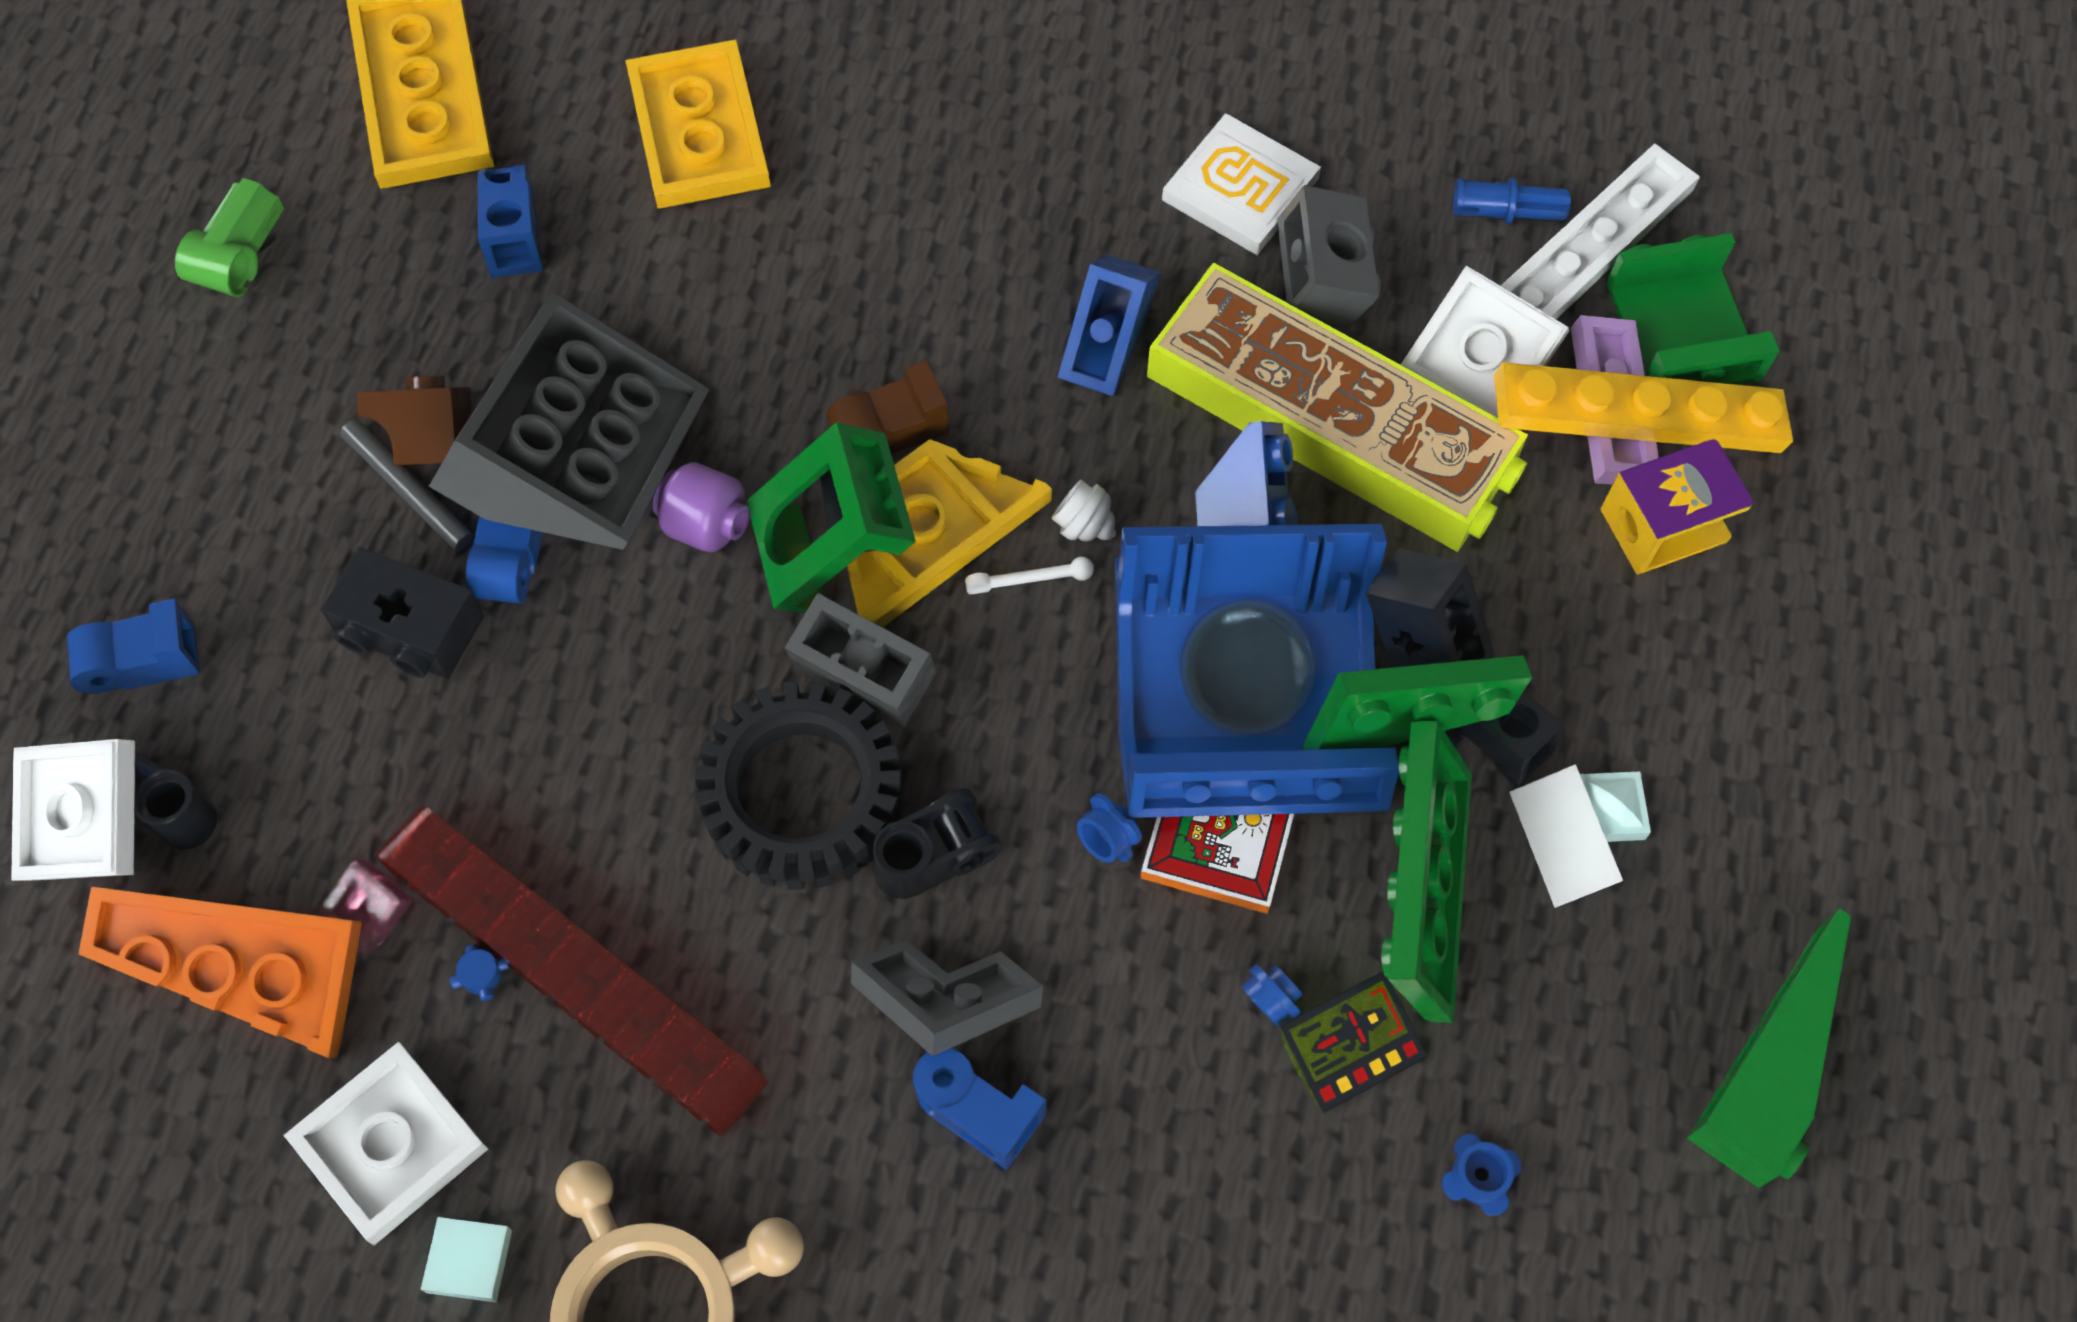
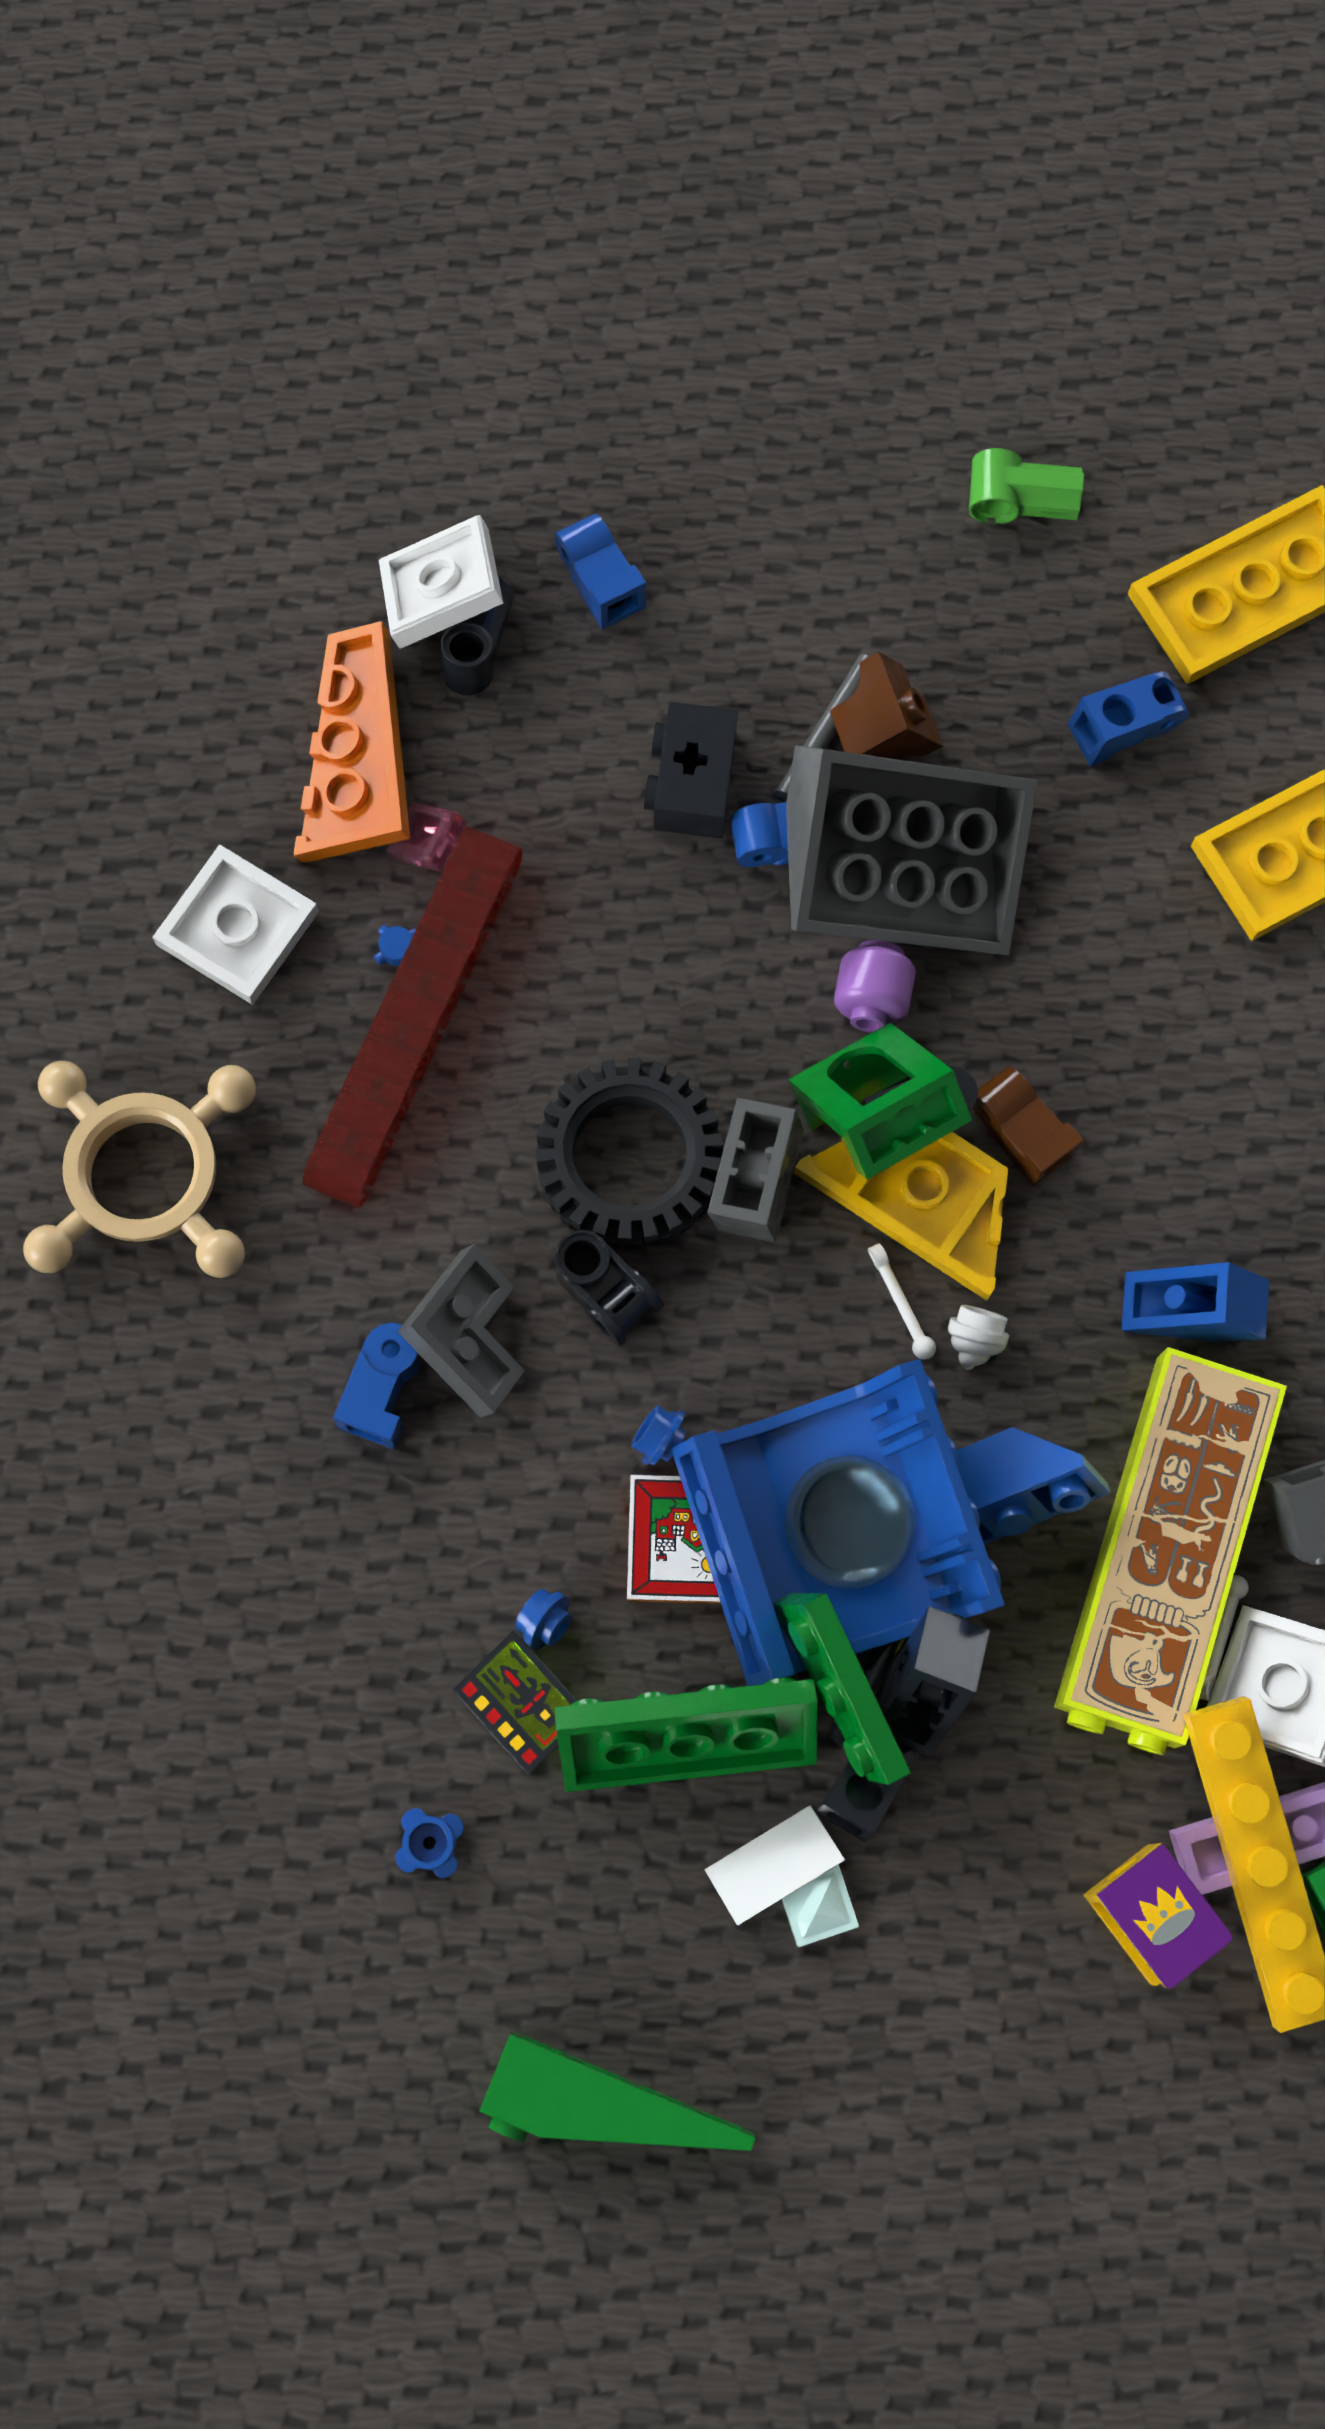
camera: 75 degrees right, 10 degrees up
(466, 1259) = (161, 1019): light aqua tile -> none

